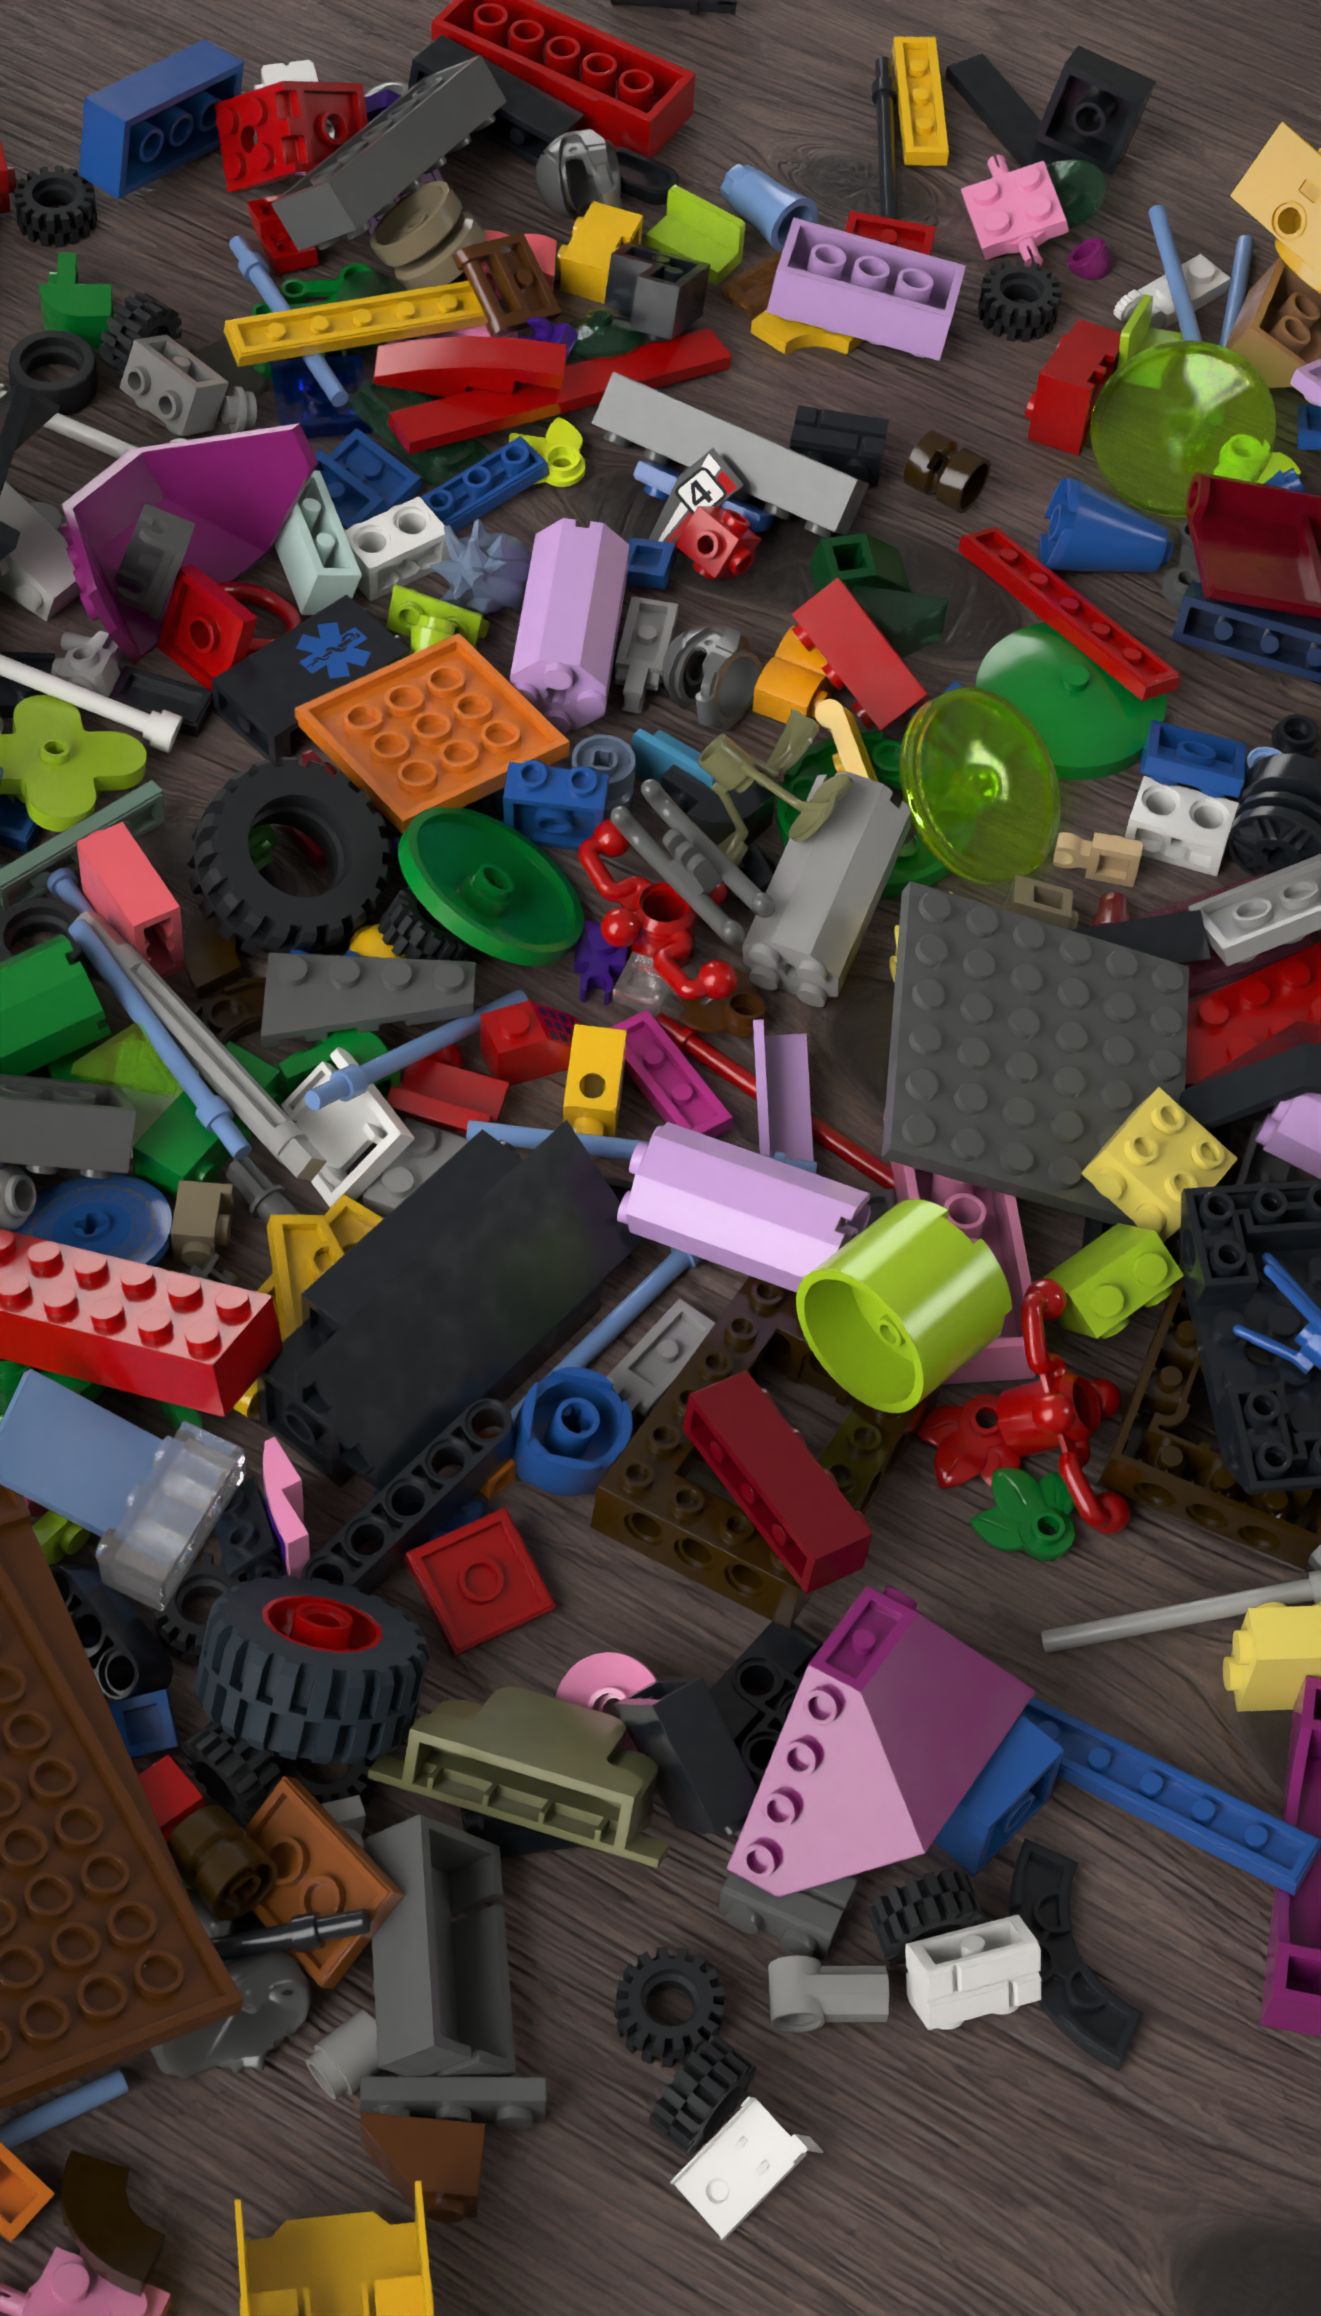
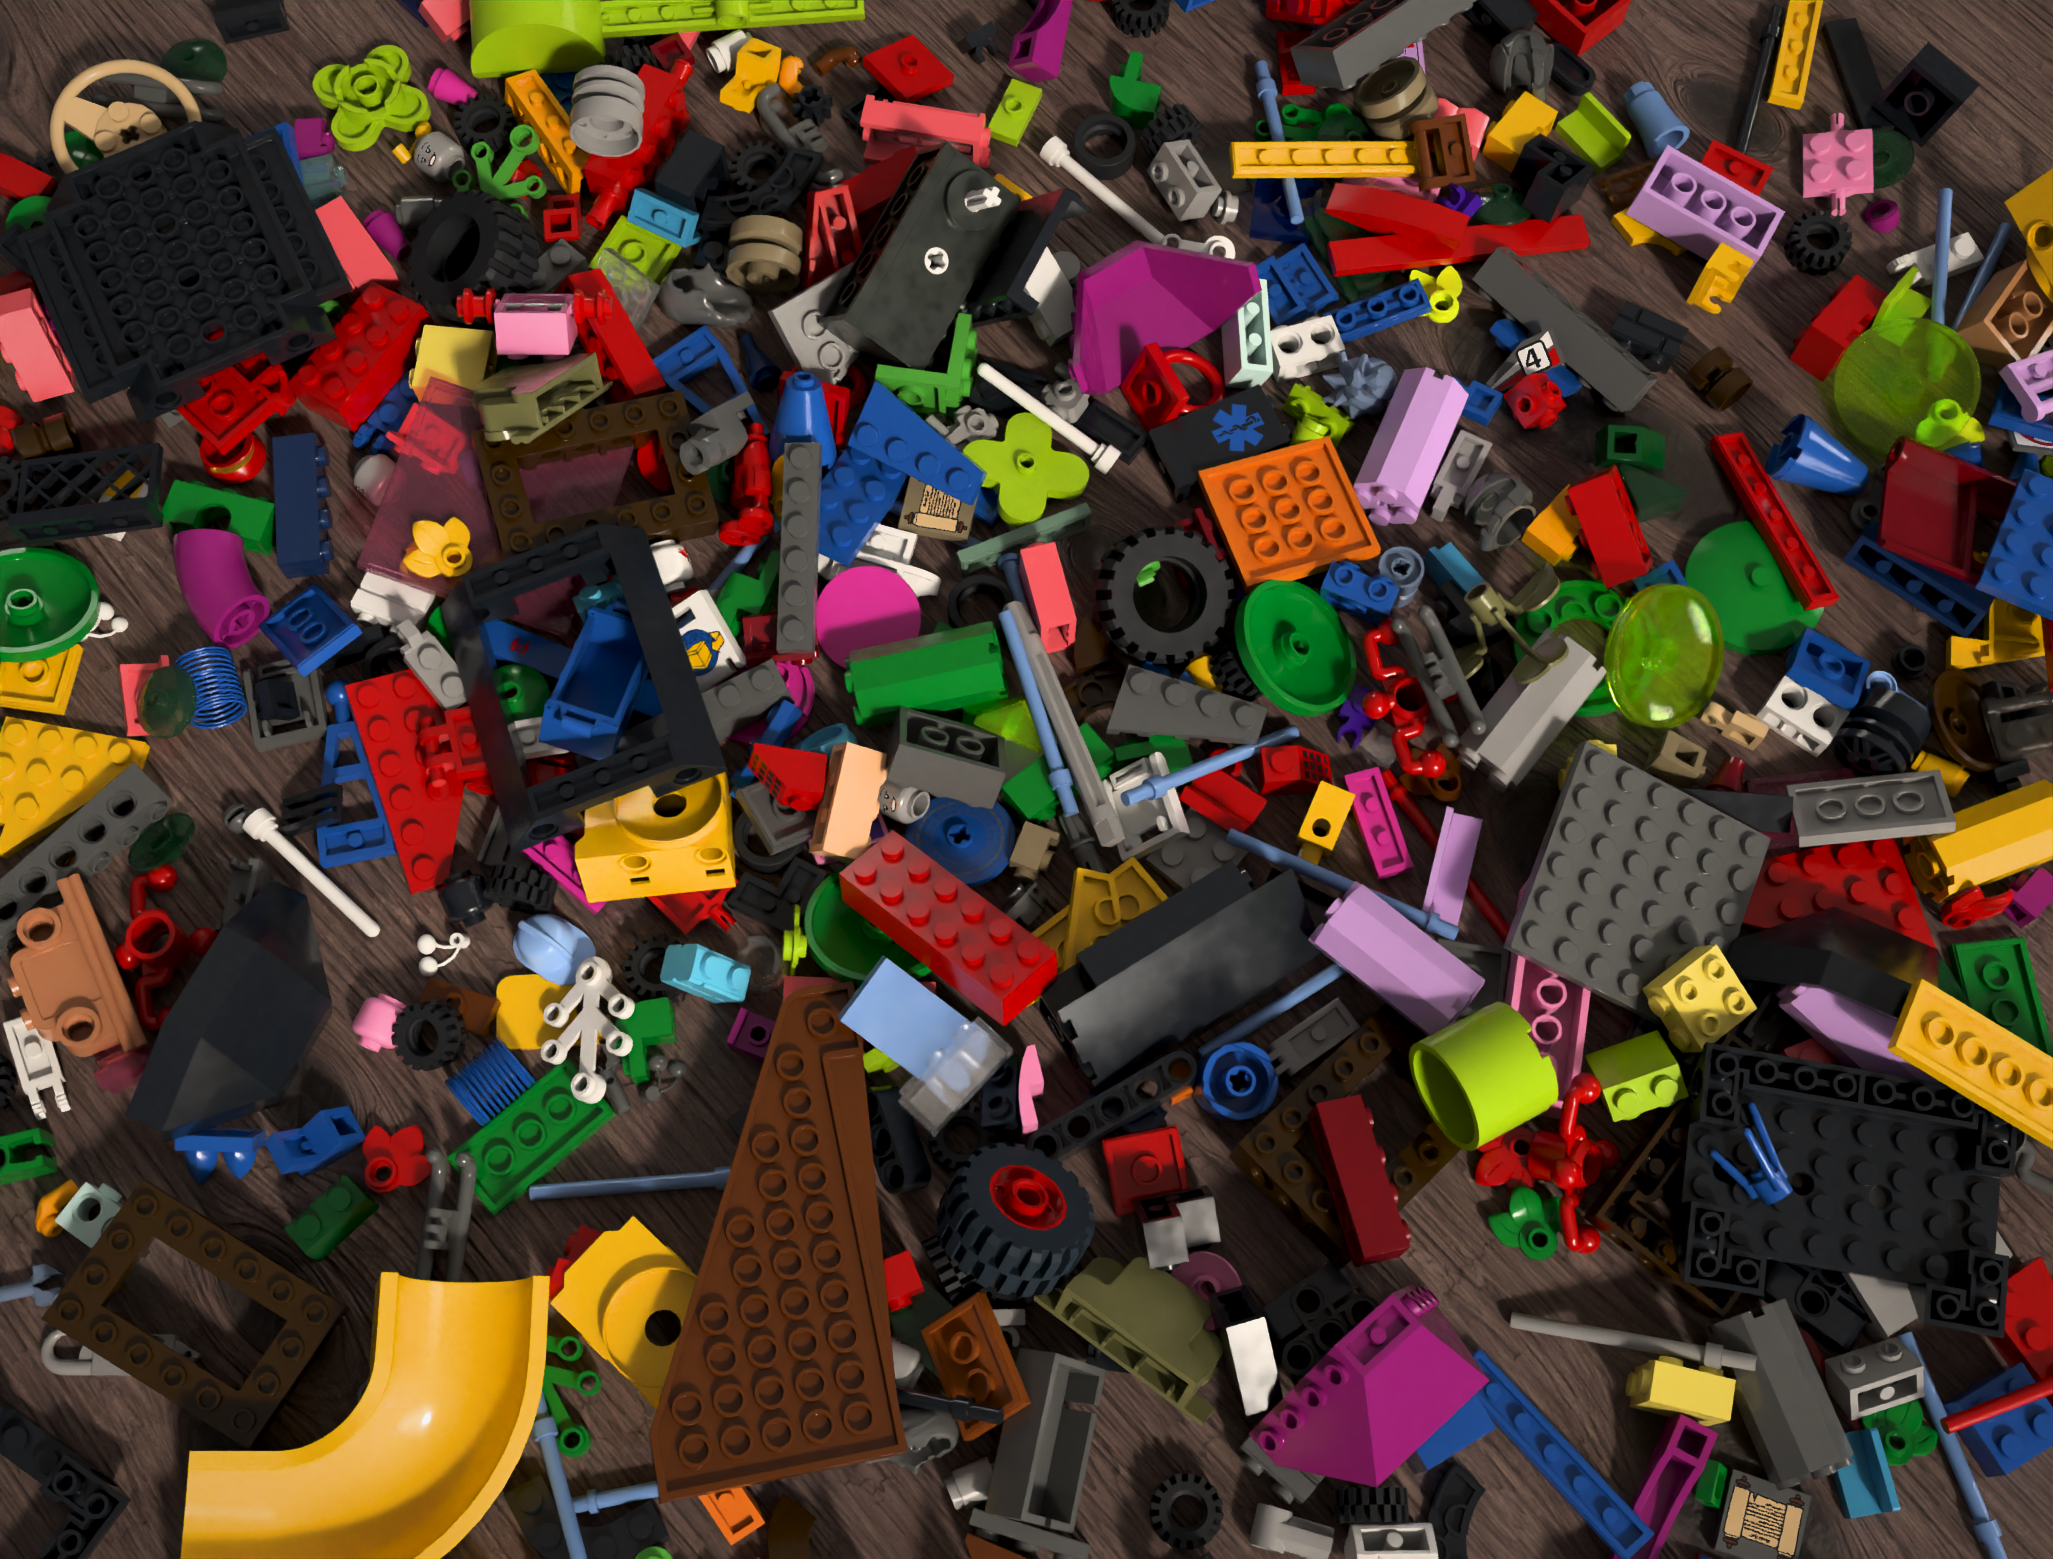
camera: 20 degrees right, 15 degrees up
(146, 1724) = (902, 1212): blue plate -> none
(153, 559) = (1131, 330): dark grey hinge -> none
(221, 1862) = (918, 1332): dark brown wheel -> none
(541, 1632) = (1173, 1223): none -> brick
(851, 749) = (1579, 607): yellow plate -> none
(910, 357) = (1720, 278): none -> yellow hinge

